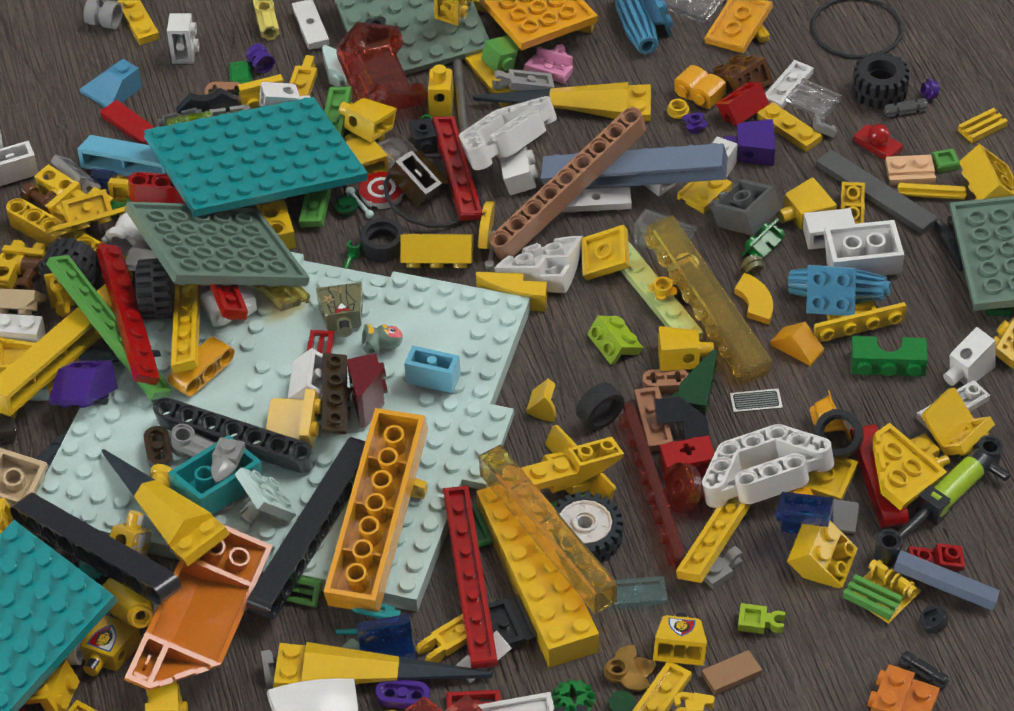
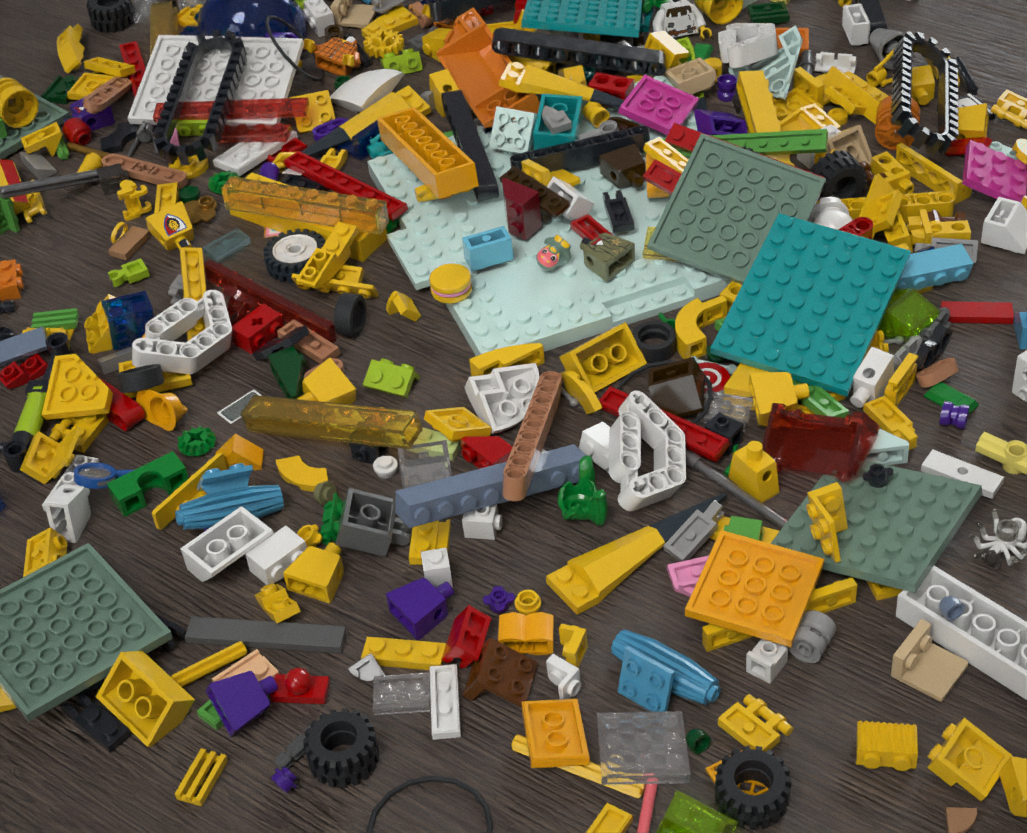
camera: 145 degrees right, 5 degrees down
(102, 440) = (658, 105): none -> dark pink plate
(110, 499) = (612, 85): none -> red brick
(216, 391) = (623, 166): none -> dark brown torso
(253, 633) = (439, 83): none -> yellow torso
(277, 351) = (618, 212): none -> black hinge
(334, 237) = (690, 321): none -> yellow arch
(493, 365) = (450, 283): none -> yellow head
(494, 681) = (279, 160): none -> yellow arm
(521, 666) = (270, 171): none -> dark purple cone
(573, 137) = (584, 499): none -> green hair
(601, 214) = (485, 450): none -> red slope
(676, 61) = (574, 643): none -> yellow bracket
(701, 48) = (563, 675): none -> white bracket
(743, 686) = (116, 229): none -> yellow piece
(792, 239) = (310, 535): none -> yellow plate
(815, 388) = (196, 447): none -> green gear
(927, 380) = (96, 475): none -> blue piece
(934, 142) = (240, 699): none -> dark purple torso

